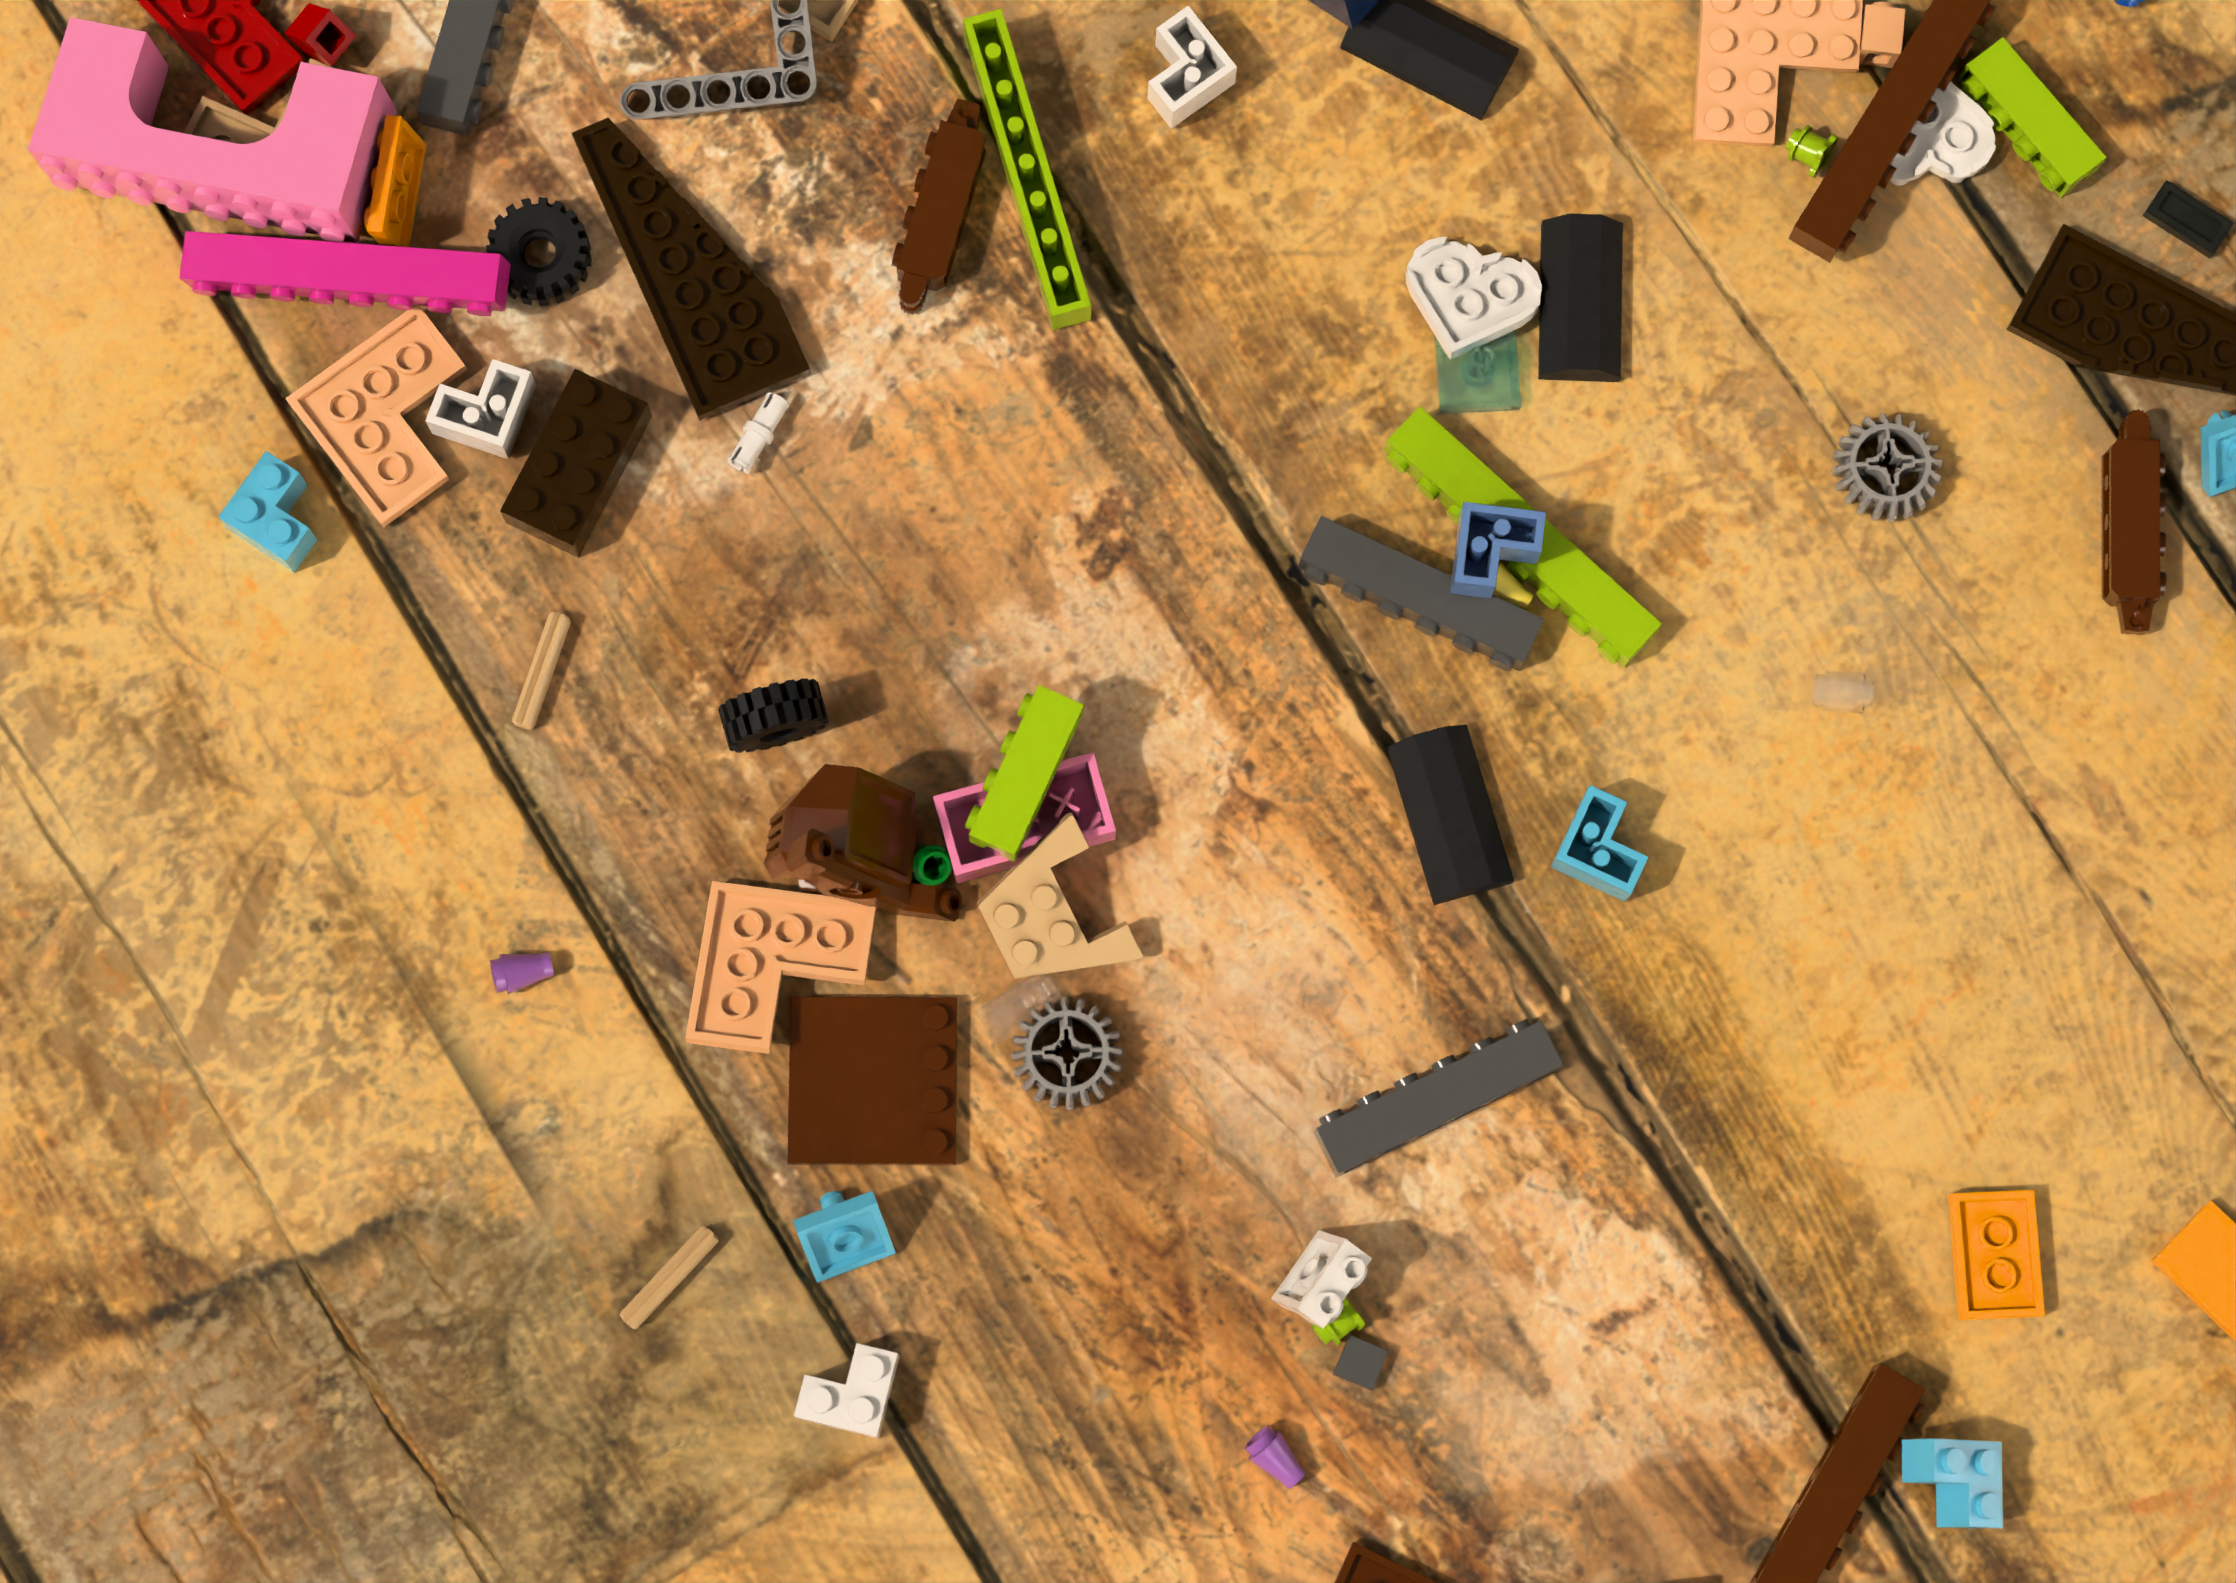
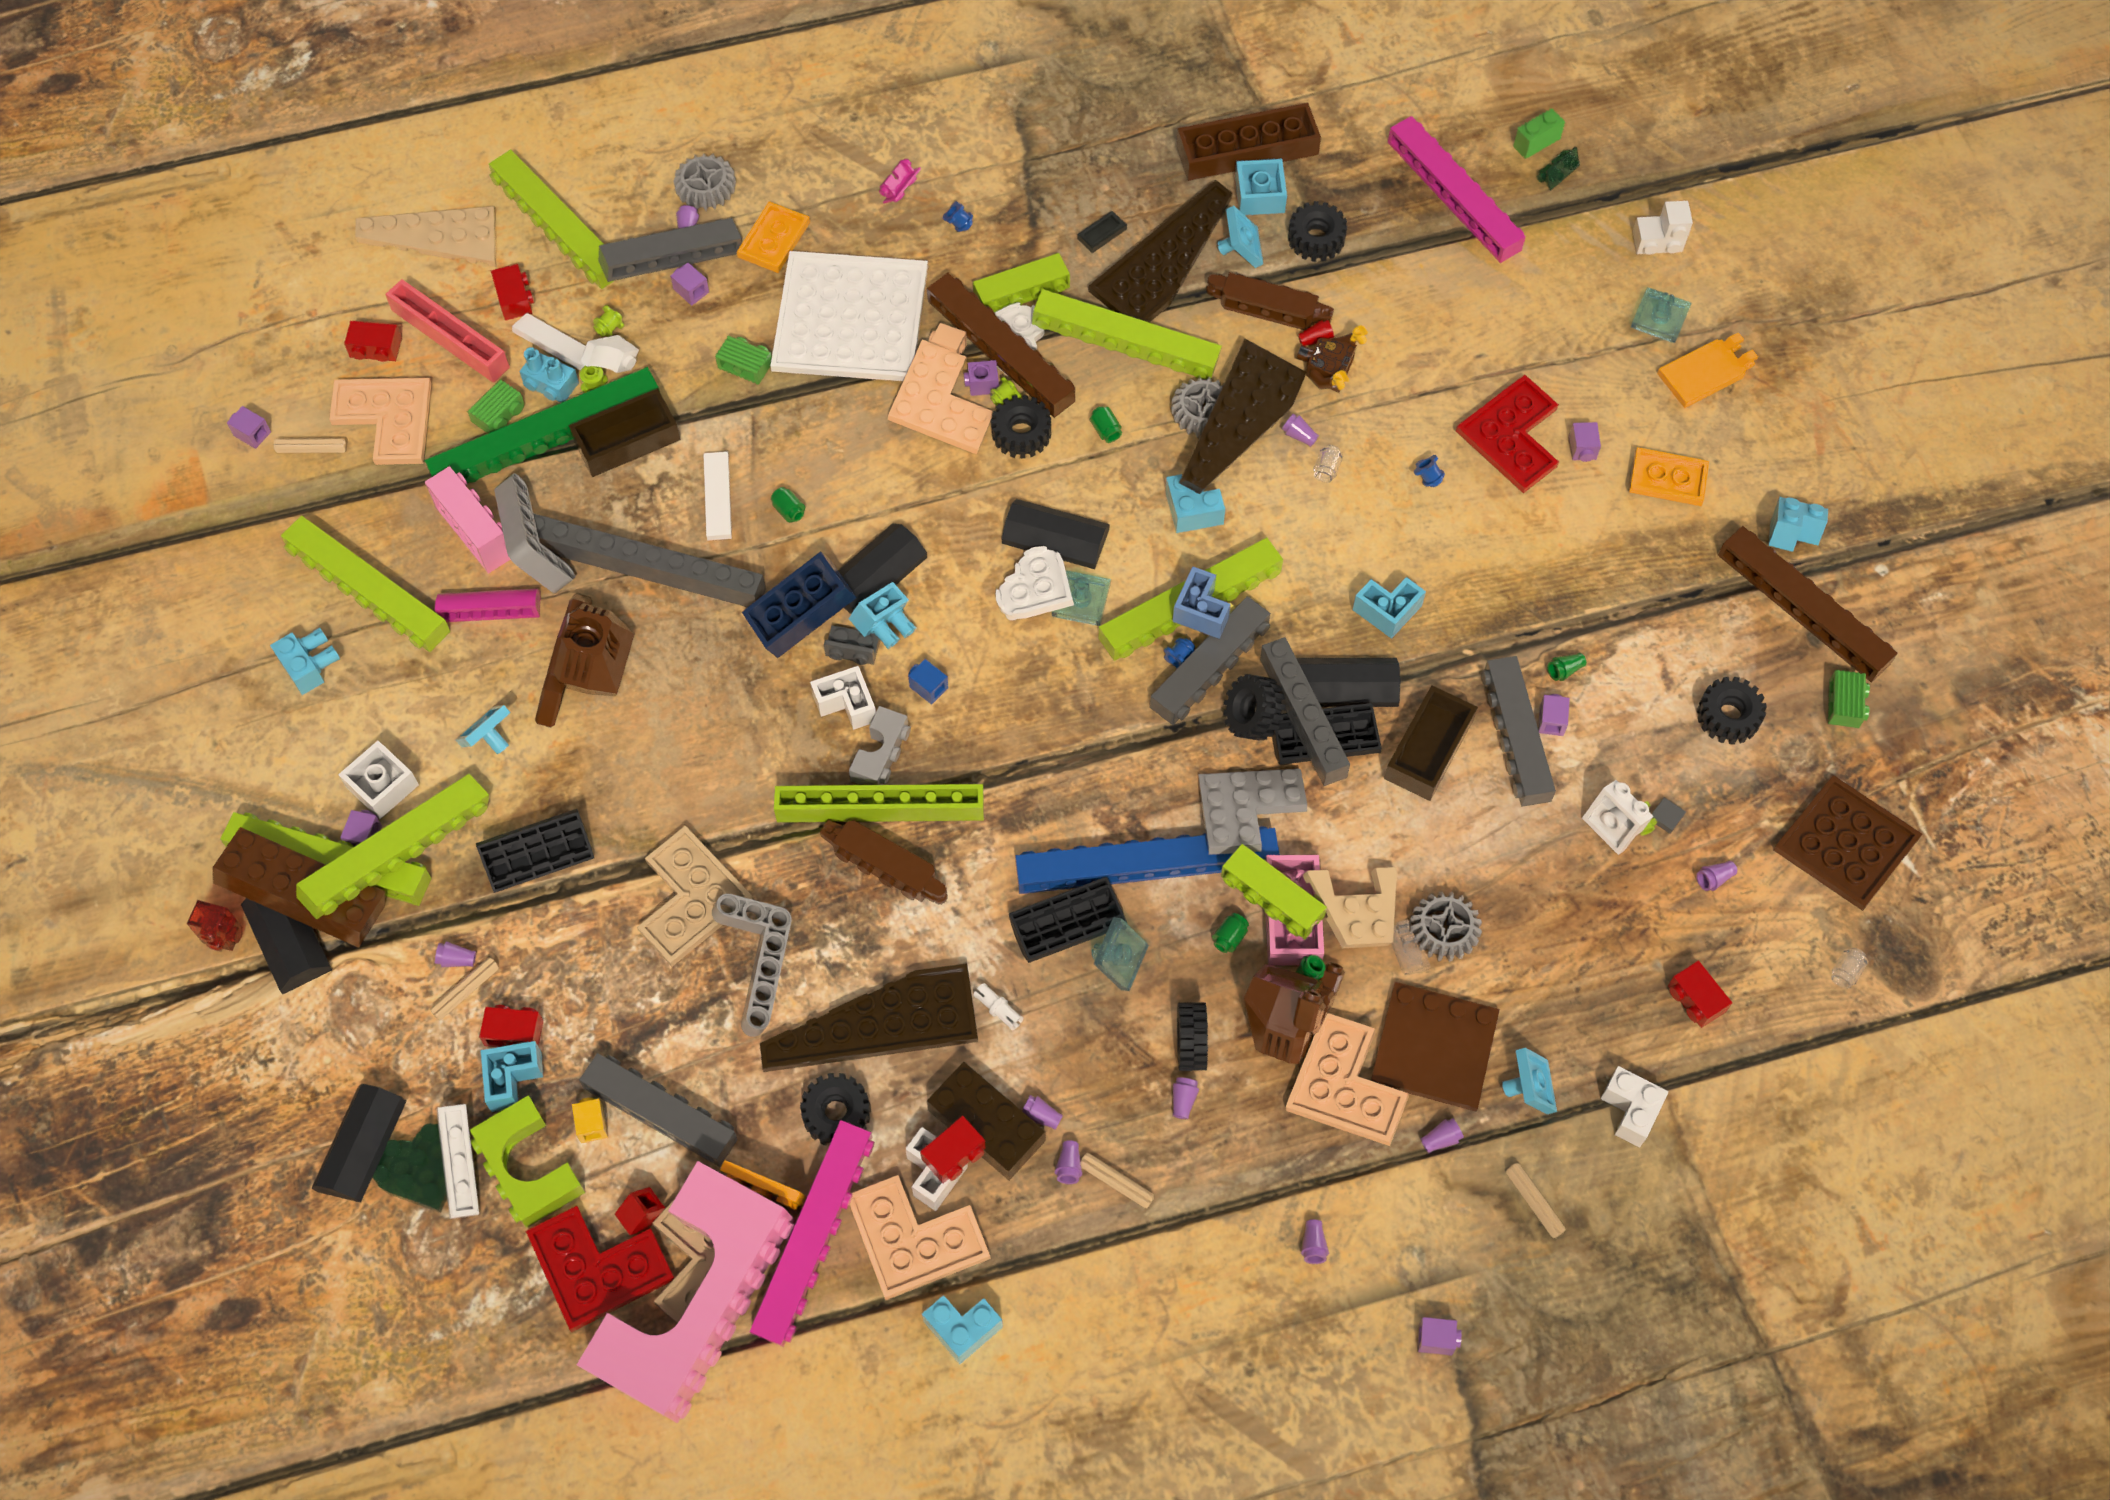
camera: 70 degrees left, 15 degrees down
(425, 1176) = (1438, 1336): none -> medium lavender brick
(499, 422) = (953, 1150): none -> red brick
(547, 596) = (1069, 1165): none -> medium lavender cone
(611, 536) = (1041, 1112): none -> medium lavender cone
(690, 732) = (1184, 1096): none -> medium lavender cone
(731, 1121) = (1442, 1136): none -> medium lavender cone
(879, 582) = (1120, 954): none -> clear light blue tile
(917, 493) = (1065, 919): none -> black piece
(966, 736) = (1230, 933): none -> green brick
(1050, 585) = (1126, 862): none -> blue brick
(1061, 1461) = (1699, 994): none -> red brick
(1152, 154) = (874, 767): none -> light grey arch
(1192, 689) = (1235, 800): none -> light grey plate
(1256, 180) = (927, 681): none -> blue brick
(1289, 53) = (851, 645): none -> dark grey bracket
(1338, 799) = (1353, 726): none -> black piece
(1342, 65) = (882, 608): none -> medium azure brick
(1342, 674) = (1241, 705): none -> black tyre
(1353, 750) = (1305, 712): none -> dark grey brick
(1369, 963) = (1430, 743): none -> dark brown piece
(1421, 543) = (1179, 652): none -> blue brick
(1484, 1148) = (1553, 715): none -> medium lavender brick
(1579, 1151) = (1564, 666): none -> green cone
(1606, 1420) = (1736, 695): none -> black tyre
(1684, 493) = (1191, 509): none -> medium azure brick
(1762, 165) = (1018, 412): none -> black tyre
(1804, 323) = (1106, 424): none -> green brick
(1830, 122) = (985, 370): none -> medium lavender brick
(1876, 857) = (1429, 471): none -> blue brick
(1893, 632) = (1300, 430): none -> medium lavender cone
(1916, 538) = (1250, 402): none -> dark brown wing
(1980, 308) = (1126, 334): none -> lime brick
(1999, 957) = (1502, 436): none -> red plate
(2018, 1101) = (1584, 441): none -> medium lavender brick
(2043, 651) = (1332, 359): none -> torso
(2093, 617) = (1315, 332): none -> red cone

